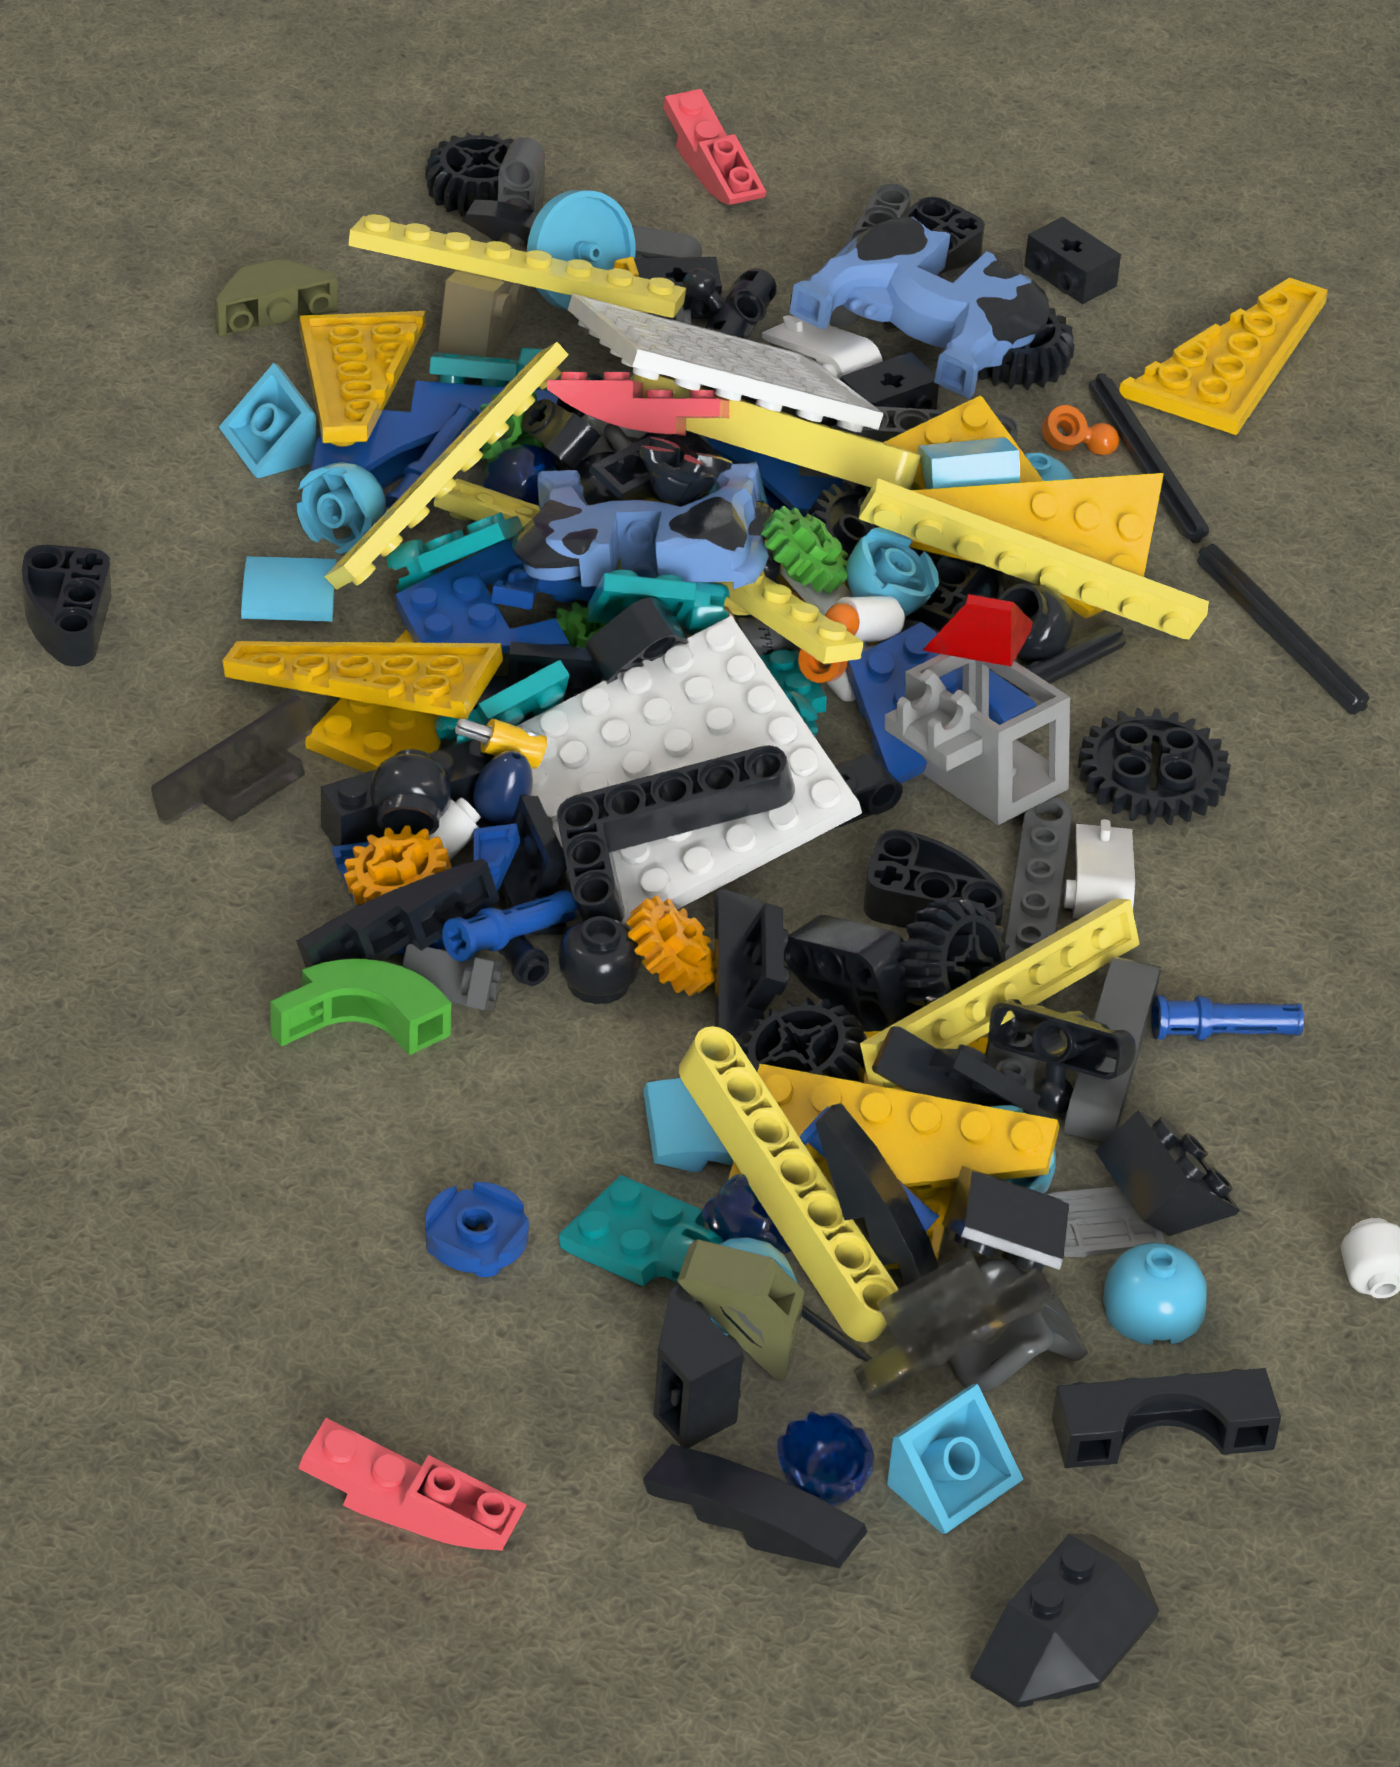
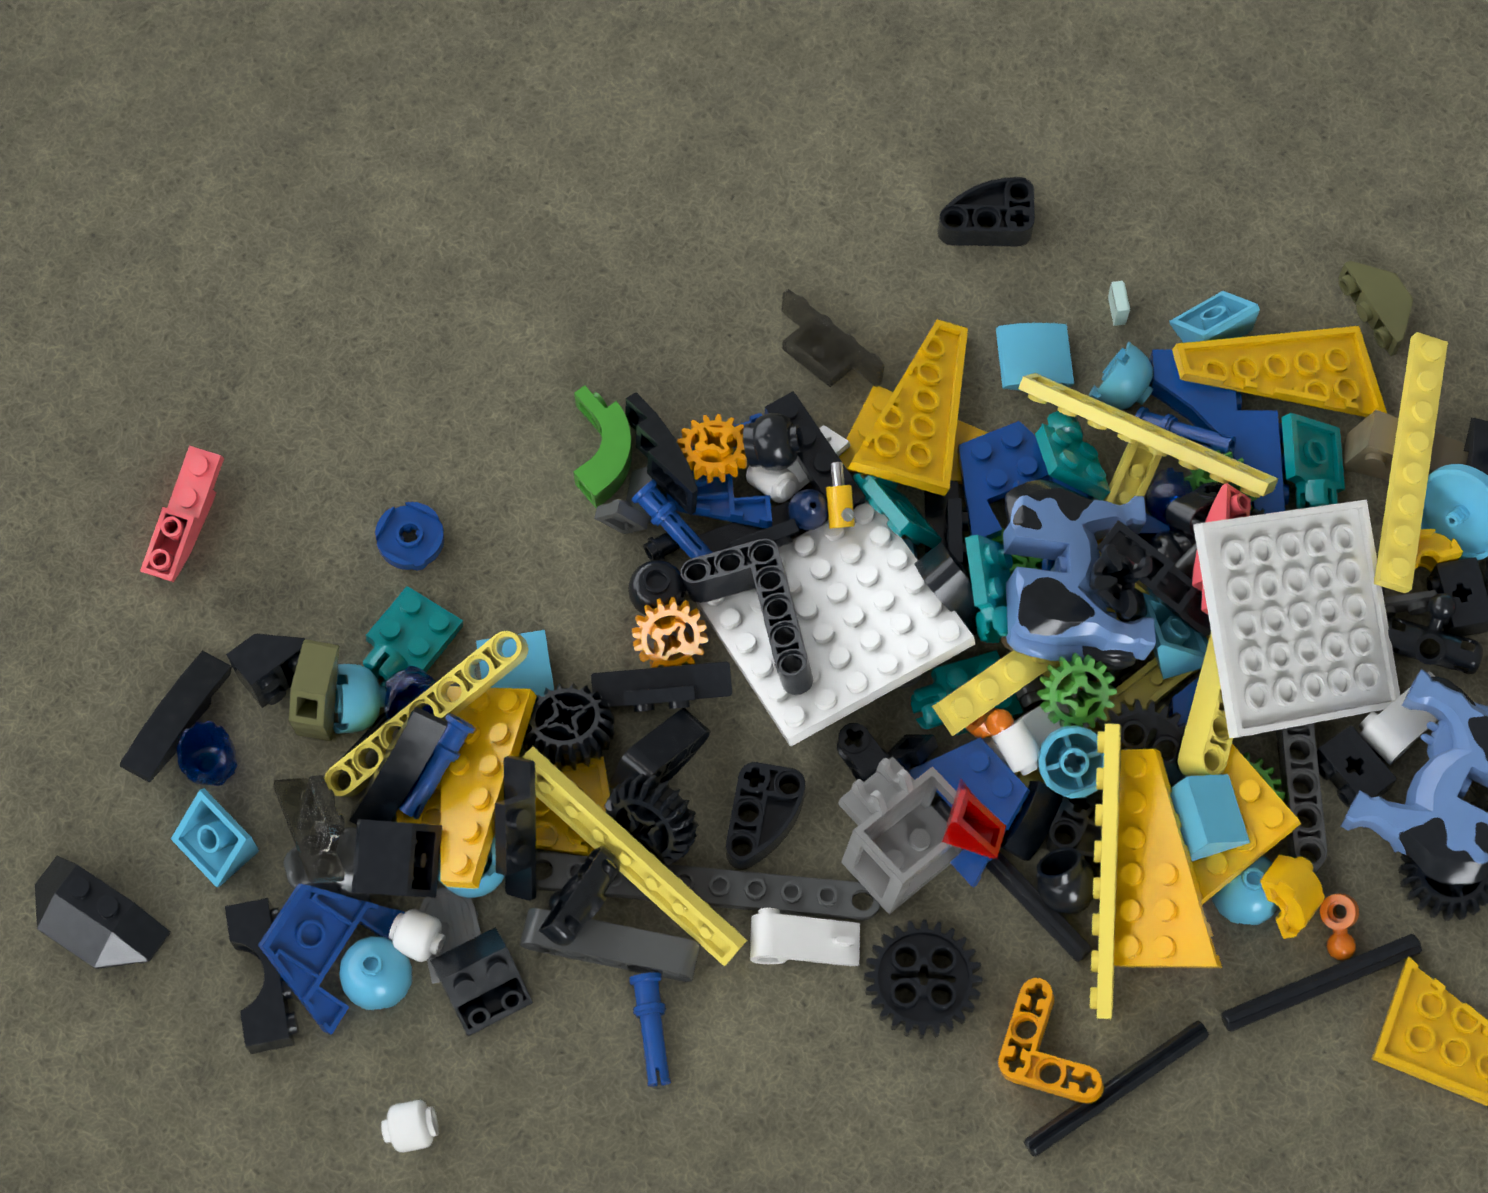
camera: 90 degrees right, 25 degrees up
(227, 504) = (1118, 303): none -> light aqua tile
(856, 736) = (913, 750): none -> black plate
(1060, 437) = (1294, 890): none -> yellow cylinder
(1106, 1230) = (417, 935): none -> white head
(1125, 1339) = (310, 938): none -> blue wing
(1251, 687) = (1037, 1061): none -> light orange beam

